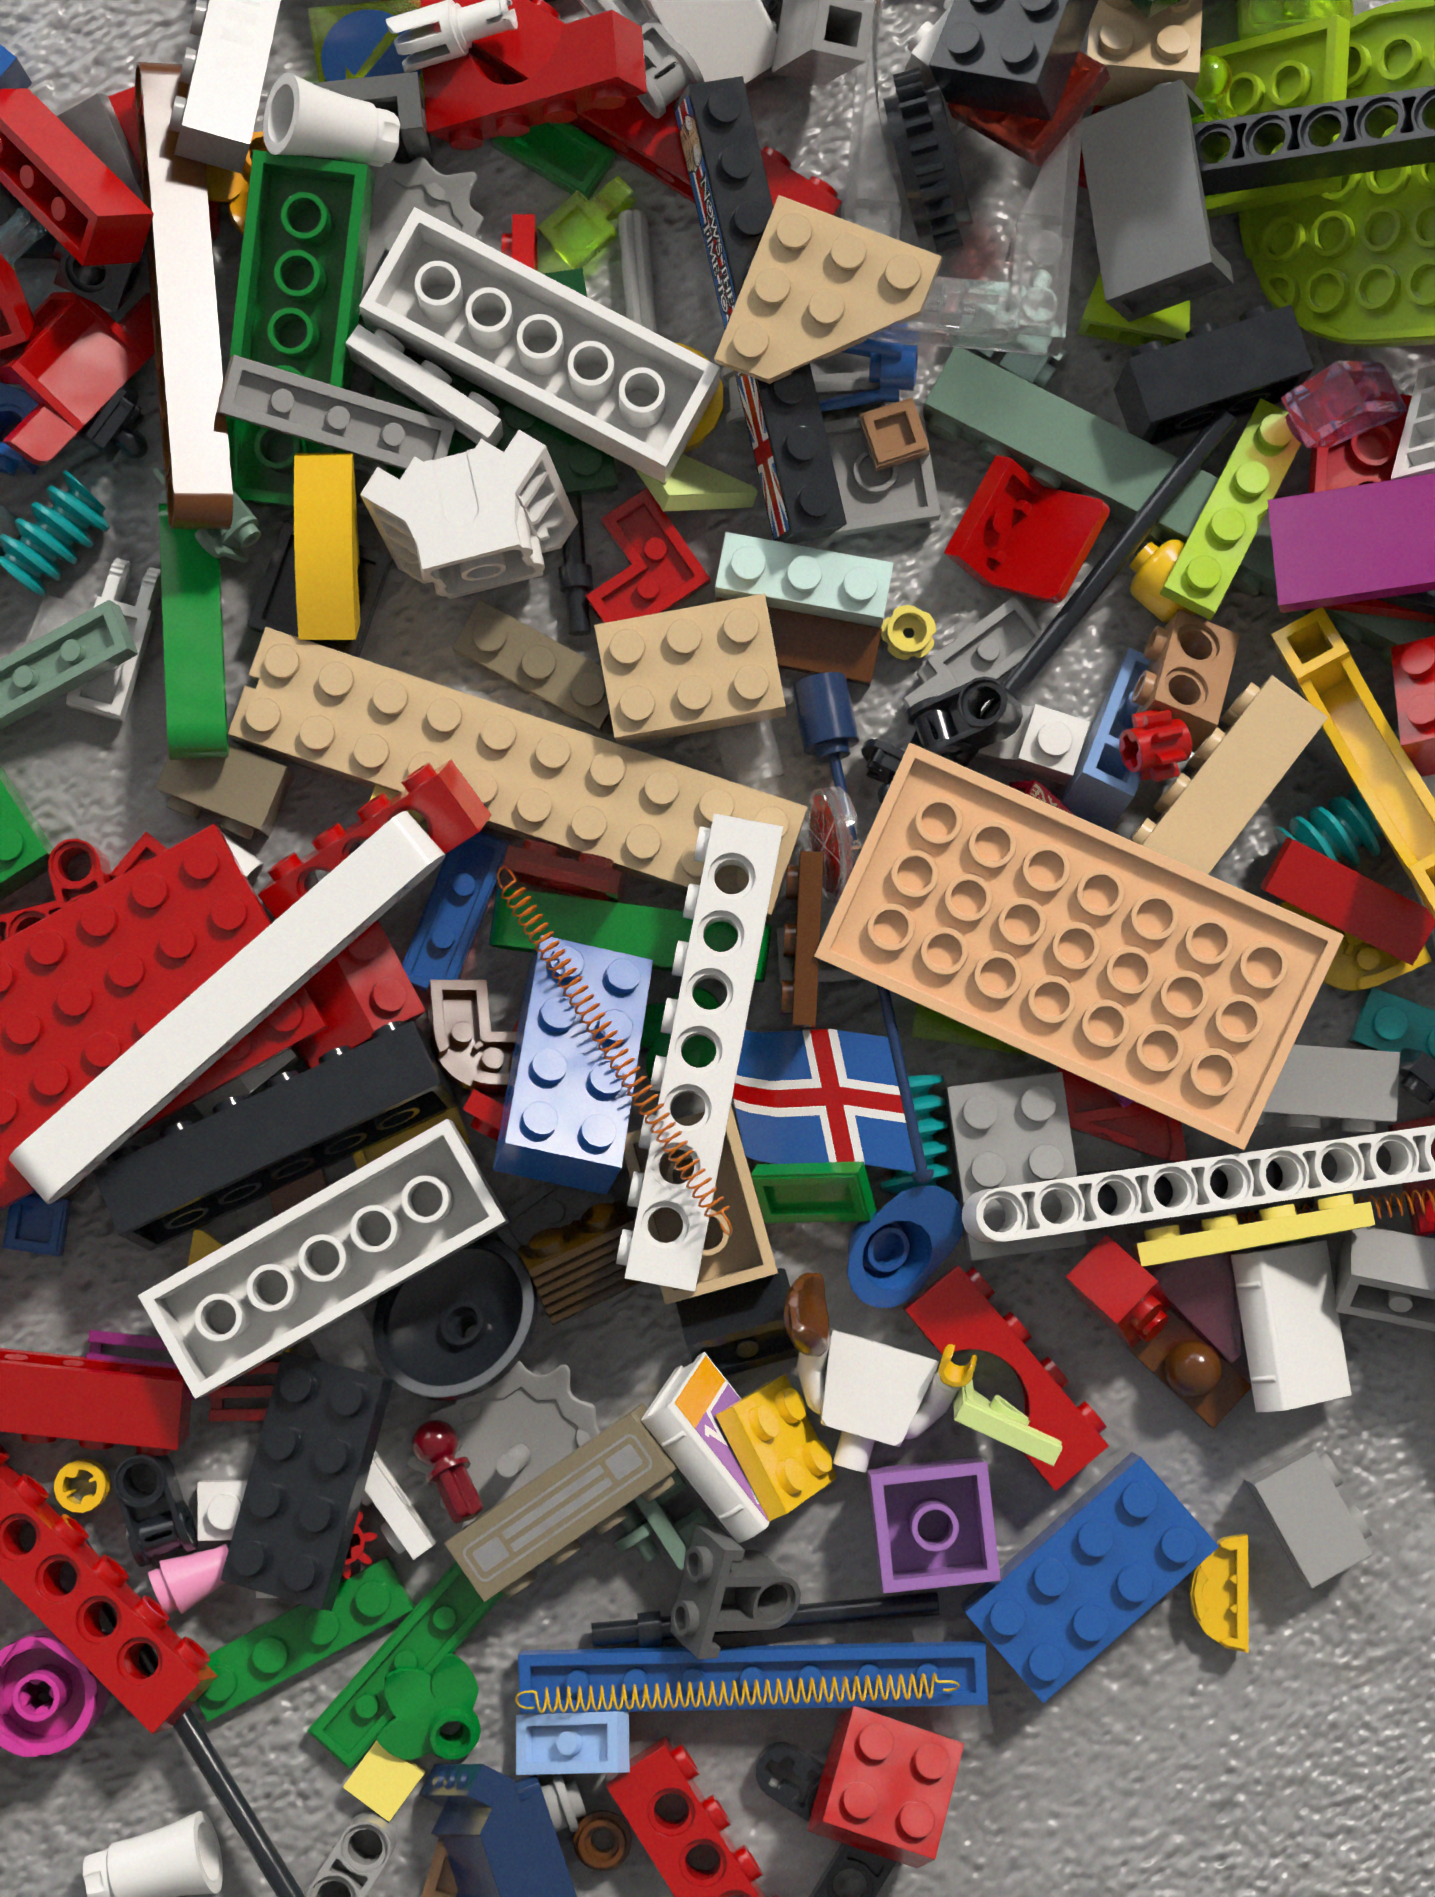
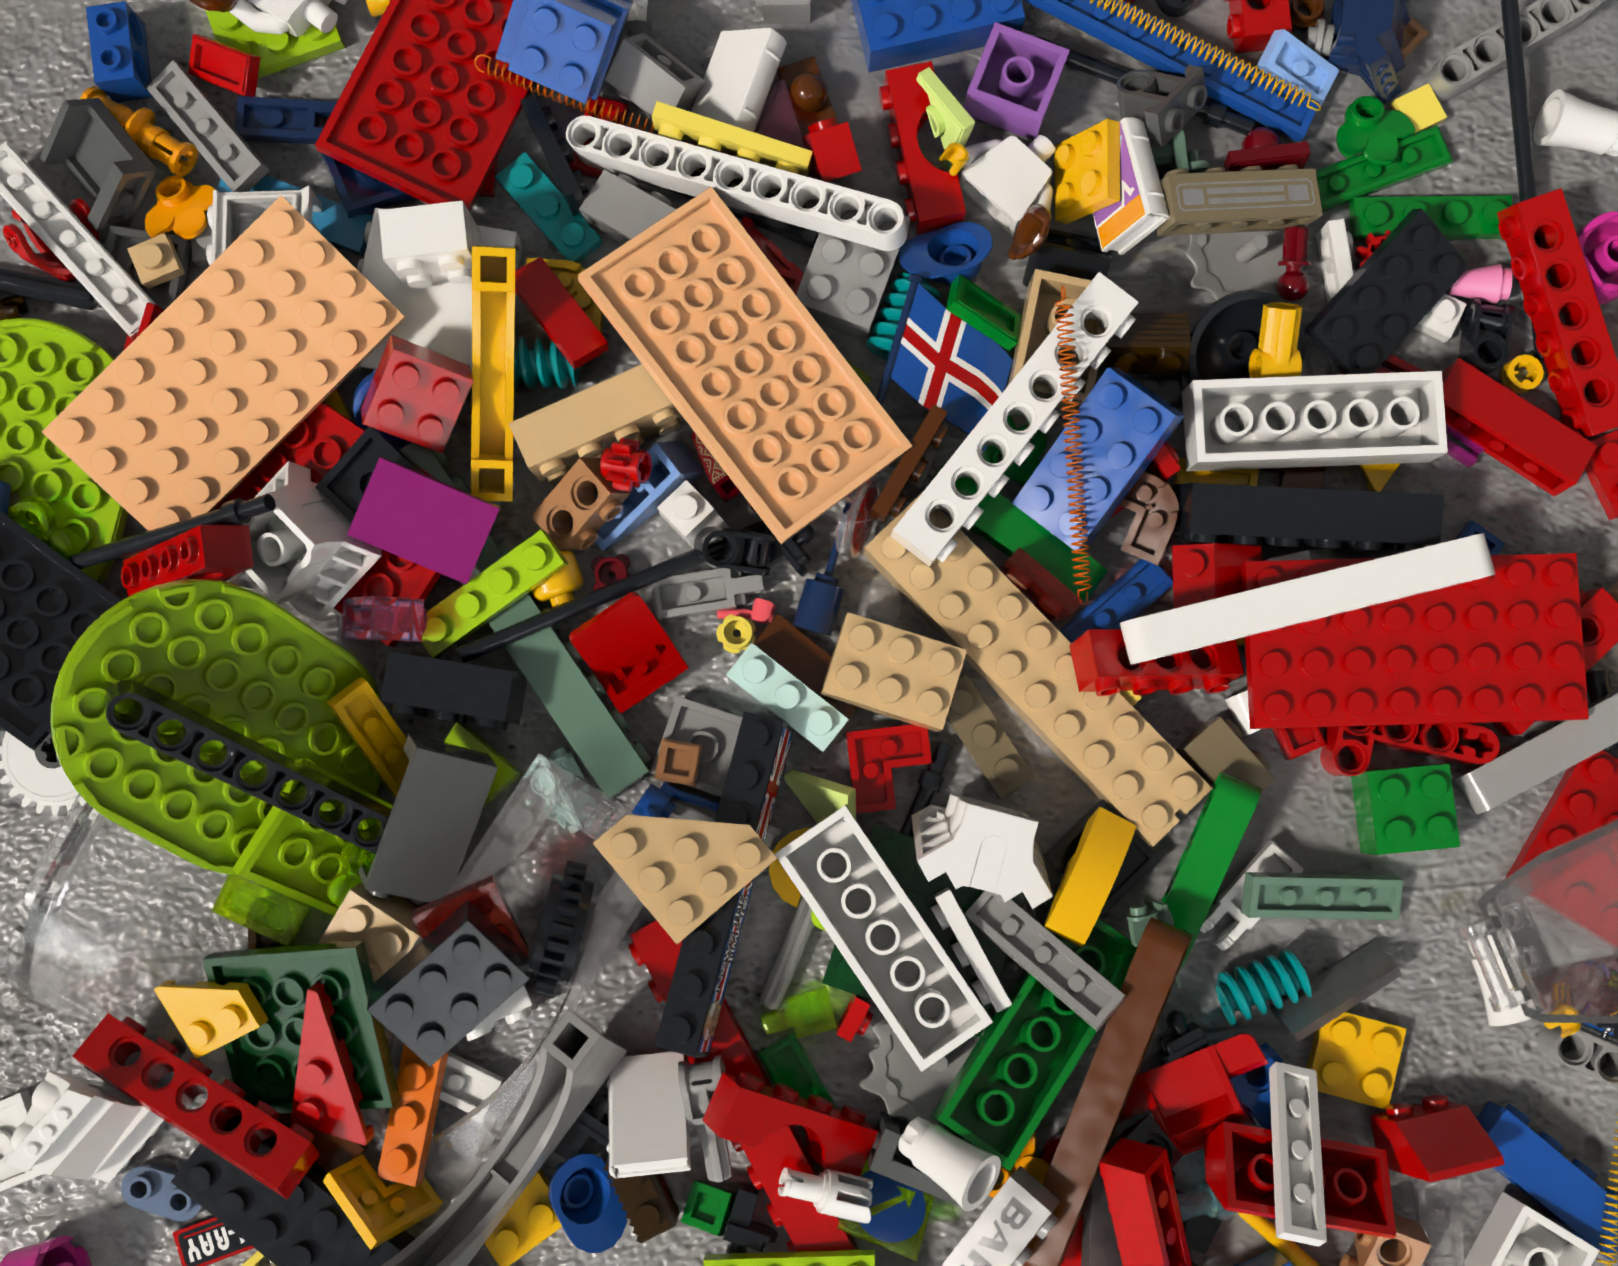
camera: 155 degrees left, 0 degrees up
(413, 1323) = (1278, 342): none -> yellow piece
(557, 1599) = (1264, 149): none -> dark red tile
(892, 674) = (761, 612): none -> coral hand
(1118, 625) = (603, 566): none -> dark red plate
(1282, 273) = (372, 731): none -> yellow plate

